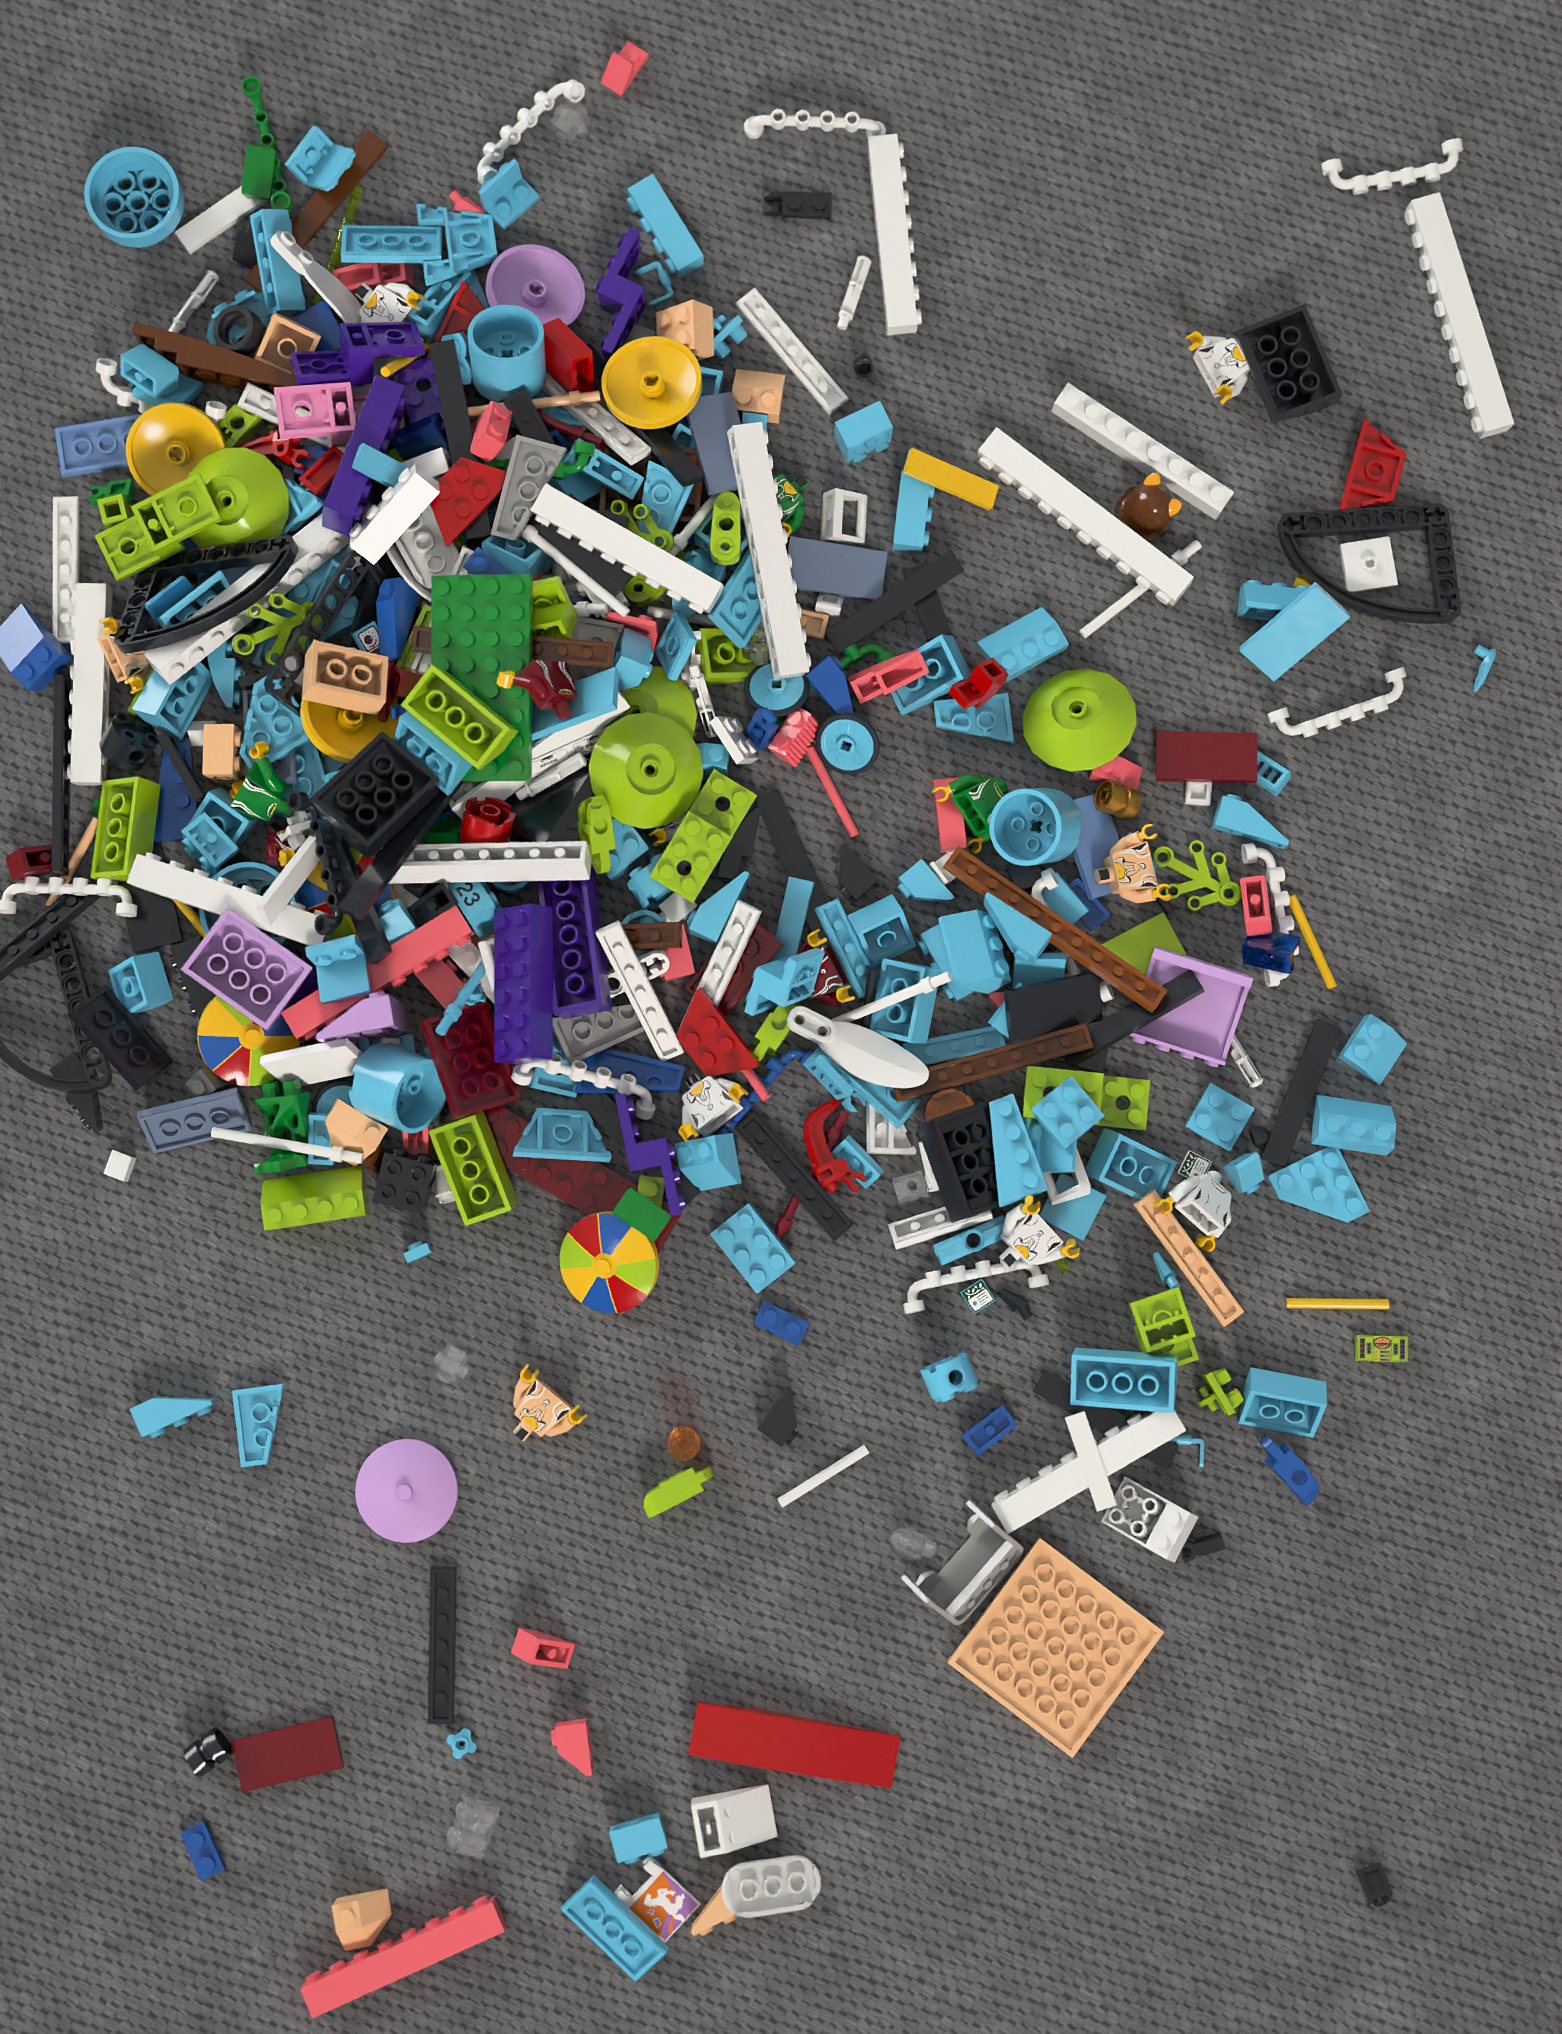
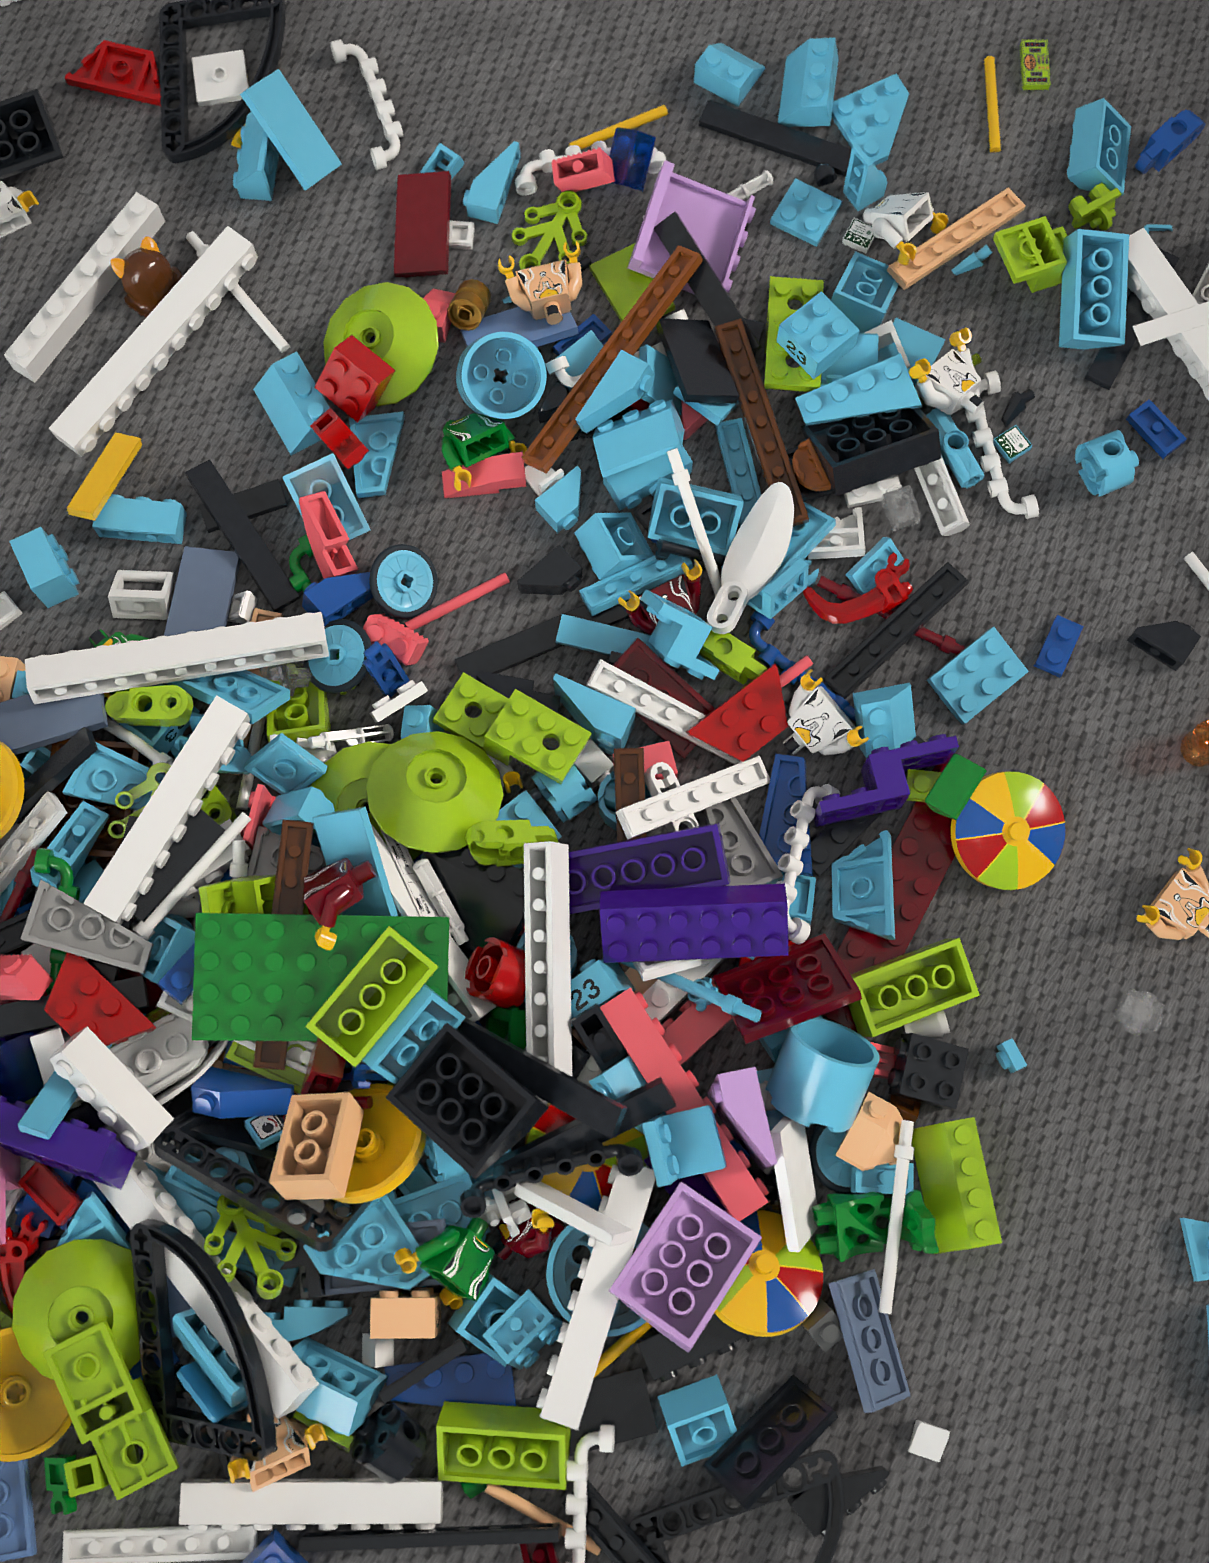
camera: 90 degrees left, 10 degrees down
(1036, 695) = (354, 378): none -> red brick

